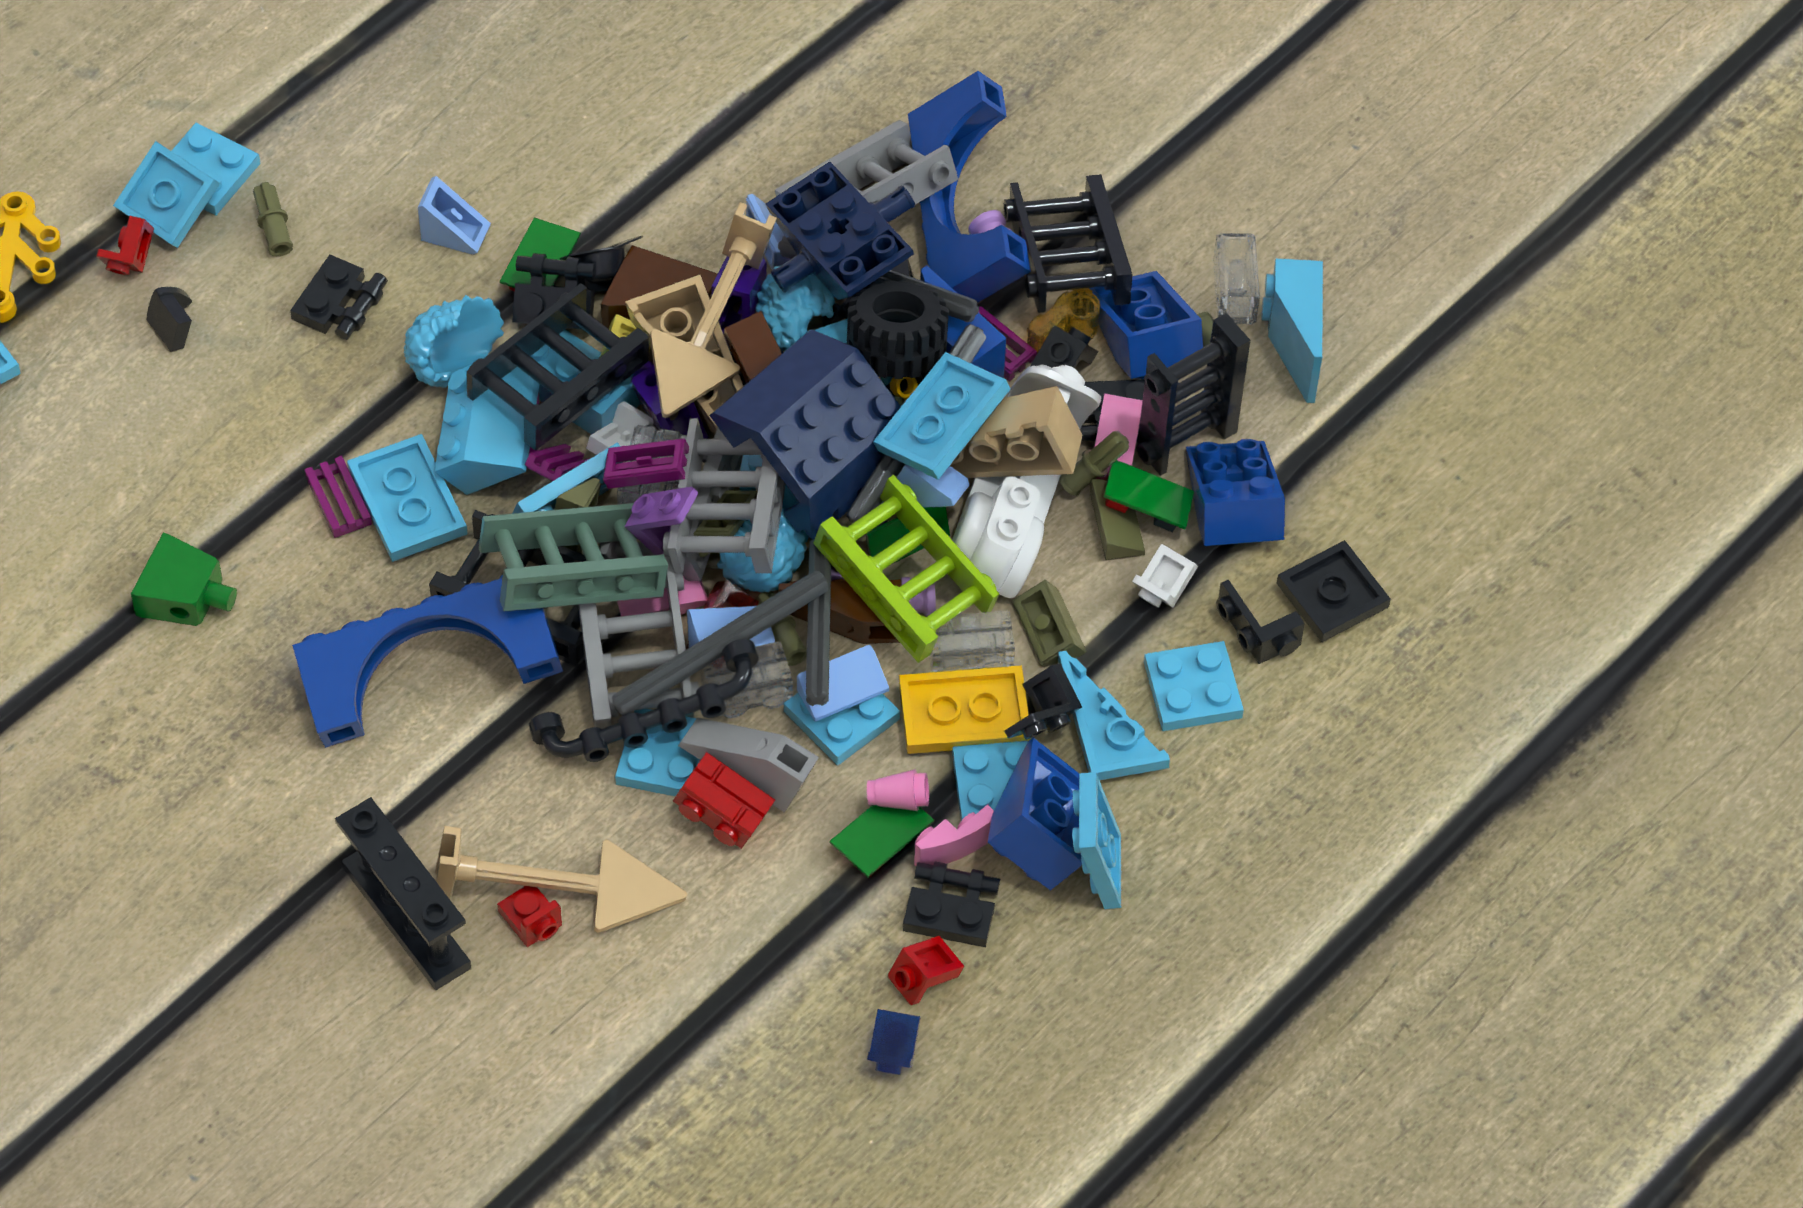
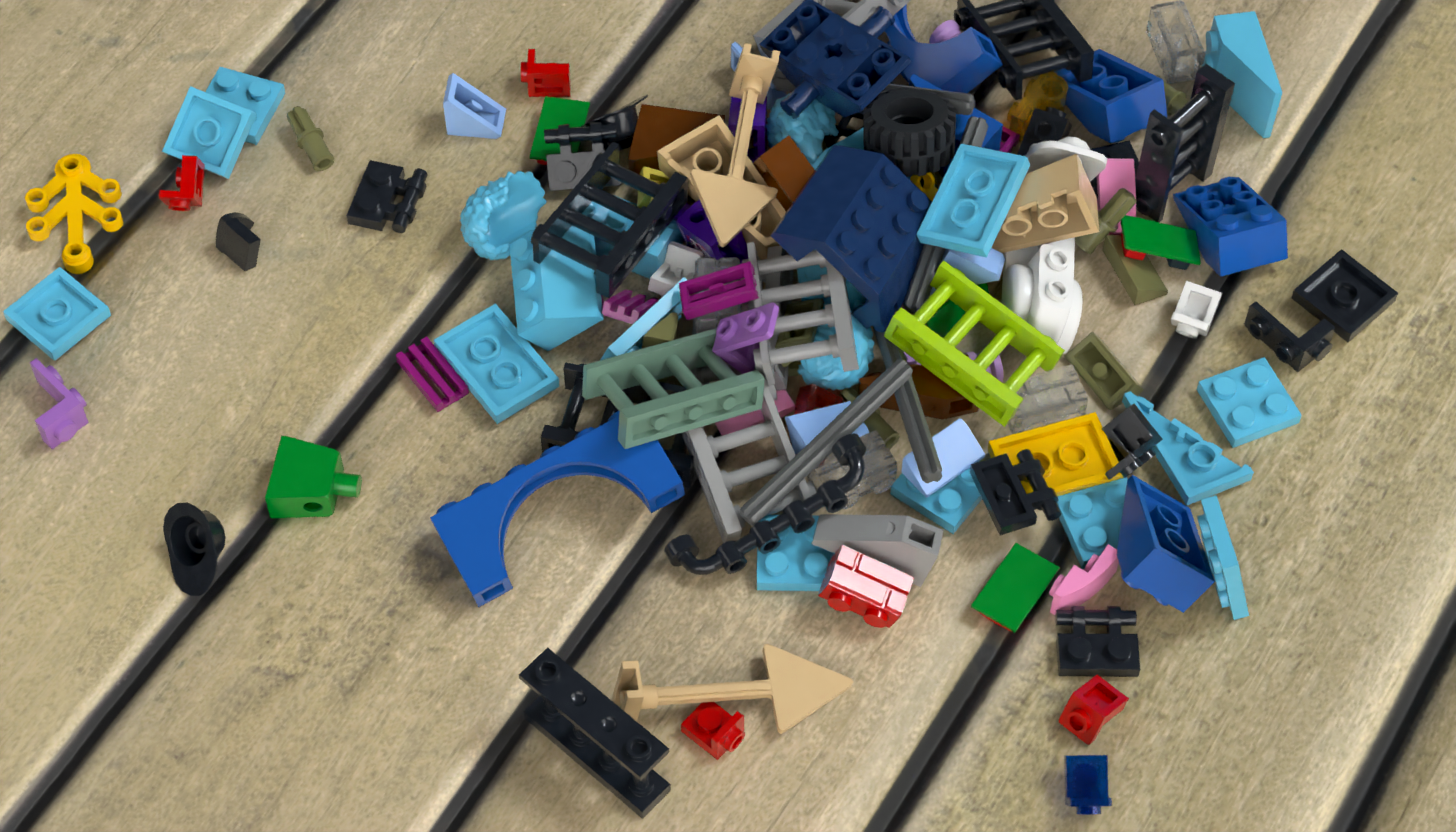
camera: 10 degrees left, 0 degrees up
(50, 630) = (193, 545): none -> black piece
(540, 198) = (545, 78): none -> red bracket
(894, 731) = (1004, 495): none -> black plate
(900, 791) = (1023, 547): bright pink cone -> none

